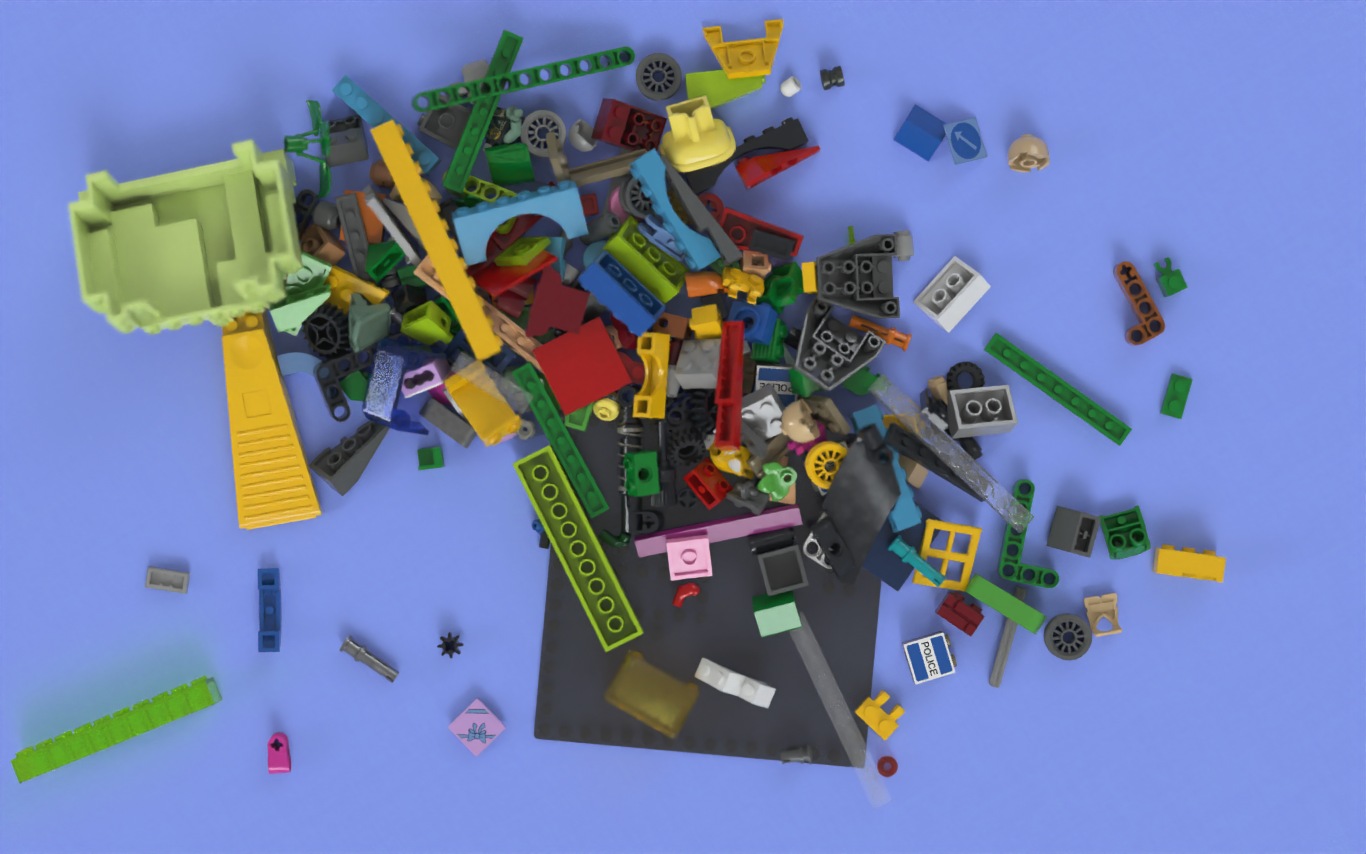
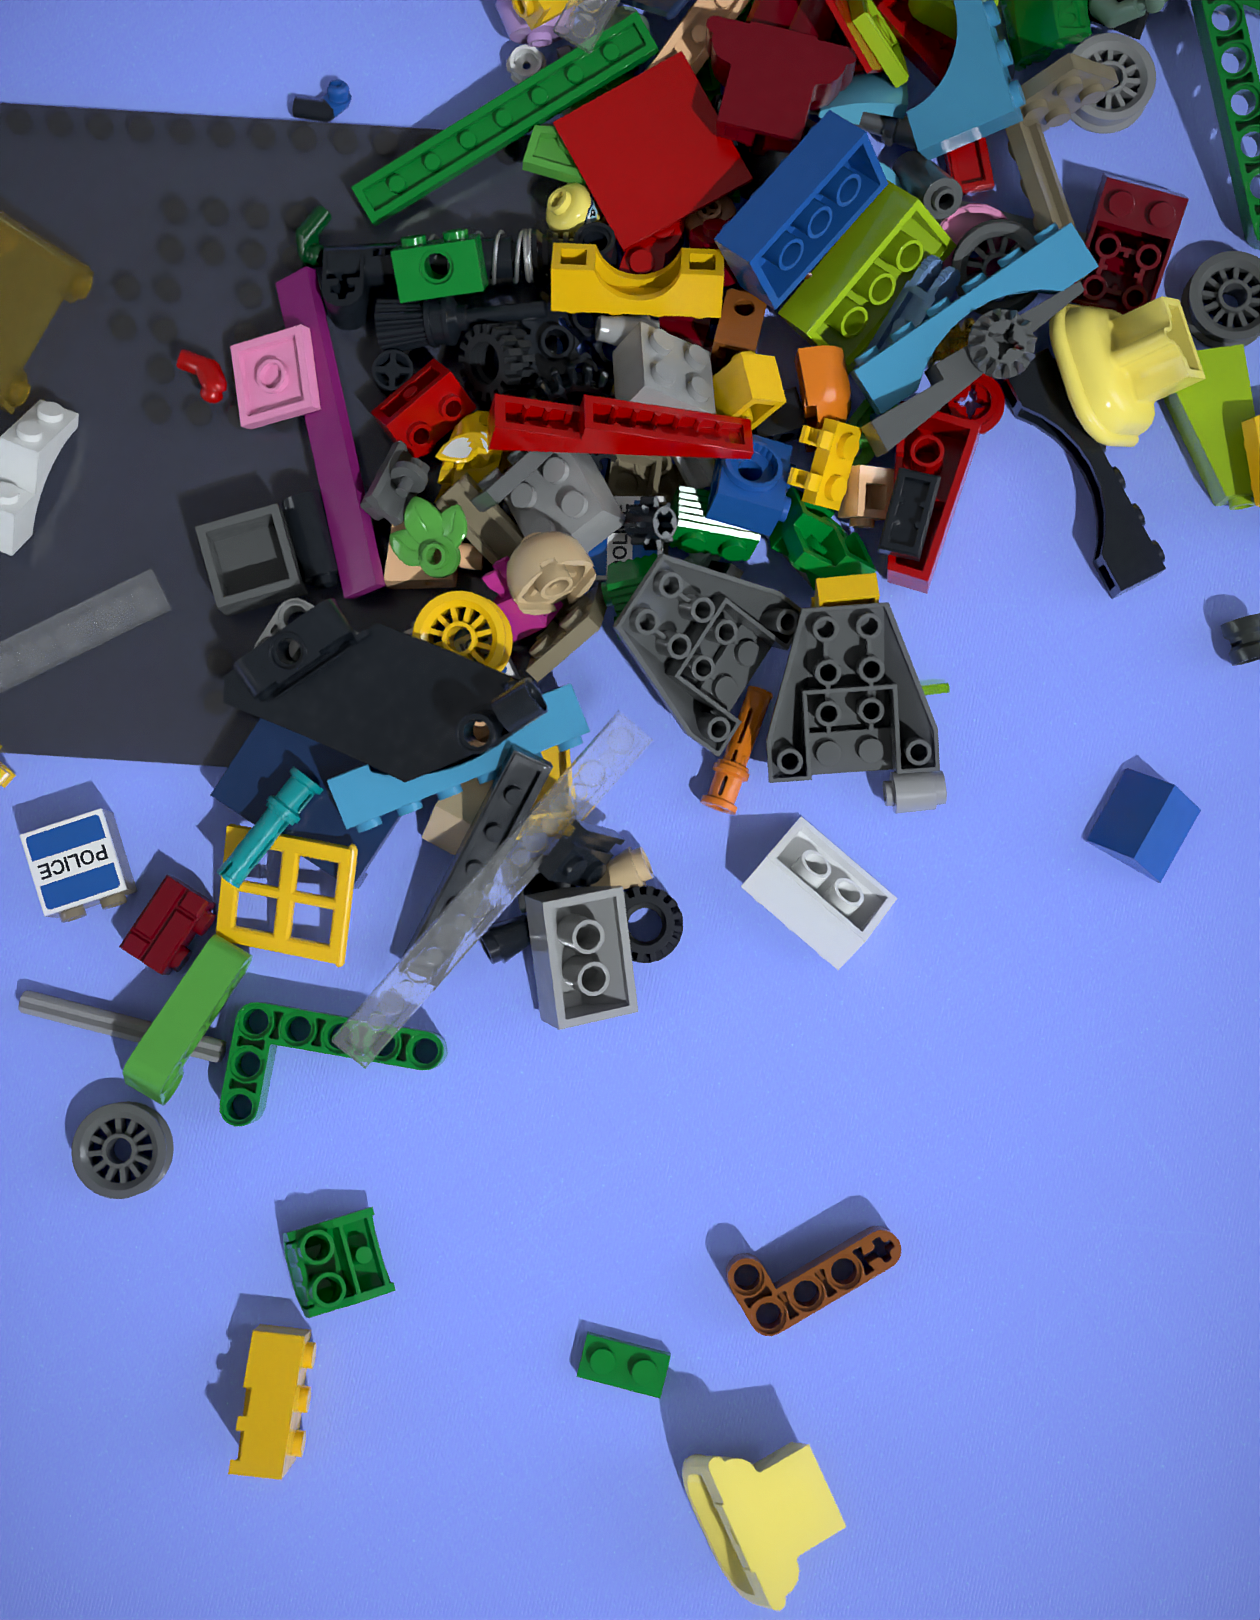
camera: 90 degrees right, 5 degrees down
(578, 548) = (287, 158): lime brick -> none
(580, 136) = (1109, 151): light grey hair -> none
(682, 200) = (985, 351): none -> dark grey gear
(763, 167) = (1059, 506): red wedge -> none
(773, 372) = (650, 523): none -> black gear
(776, 613) = (163, 551): slope -> none
(790, 86) = (1223, 561): white piece -> none
(860, 381) = (643, 707): green slope -> none
(965, 141) = (1133, 910): piece -> none
(1028, 153) = (1113, 1039): tan cylinder -> none
(1057, 389) = (630, 1116): green plate -> none
(1073, 531) = (337, 1155): dark grey slope -> none
(1101, 607) = (185, 1219): tan piece -> none
(1170, 281) = (862, 1345): green brick -> none
(1248, 332) = (762, 1517): none -> light yellow piece

